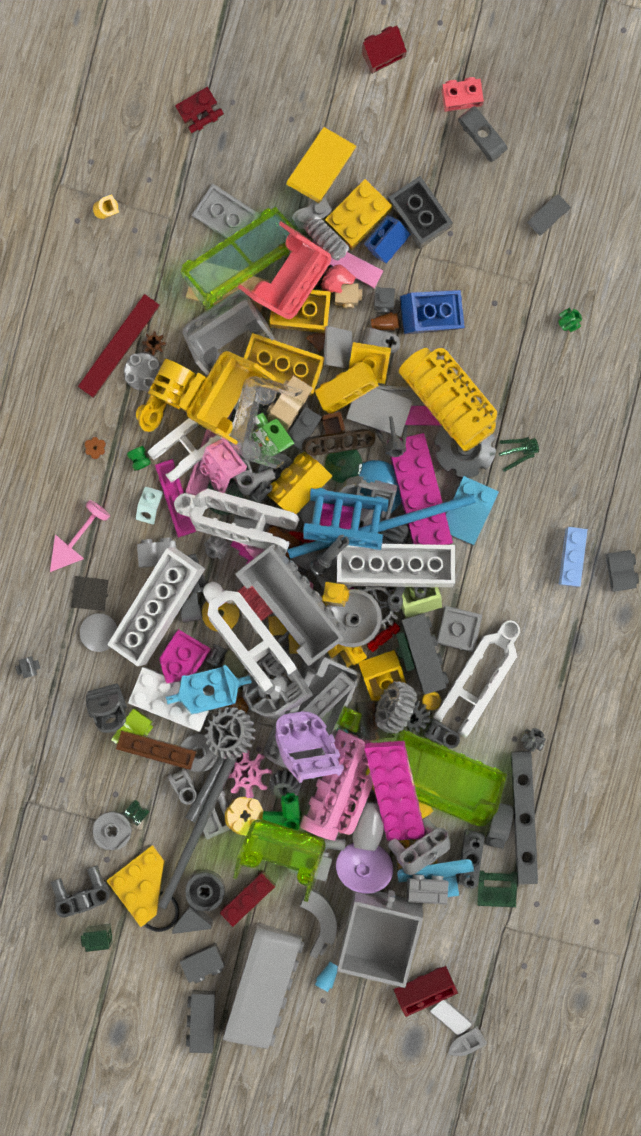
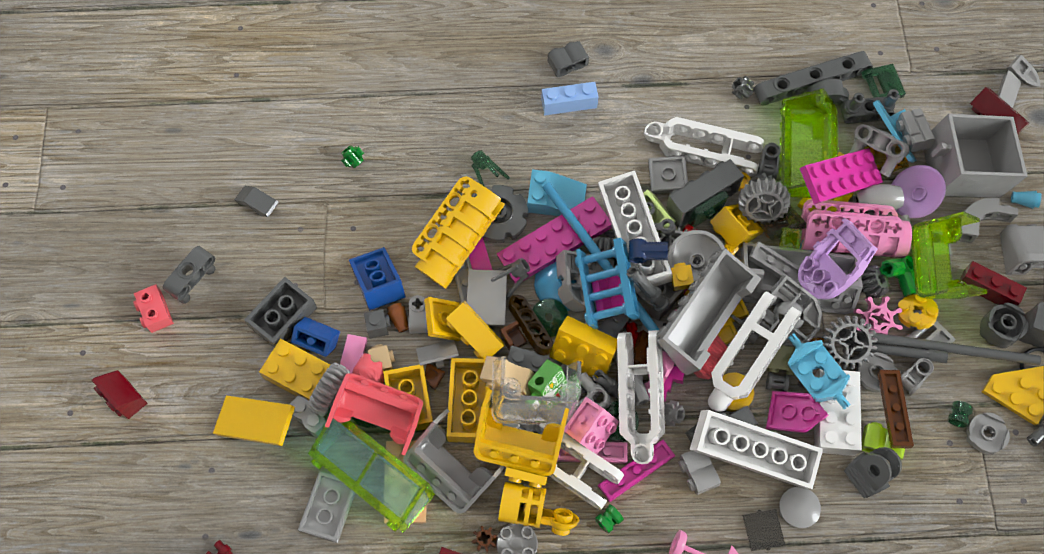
camera: 105 degrees left, 20 degrees down
(149, 503) = (652, 494): light aqua bracket -> none
(365, 561) = (641, 250): none -> dark blue piece

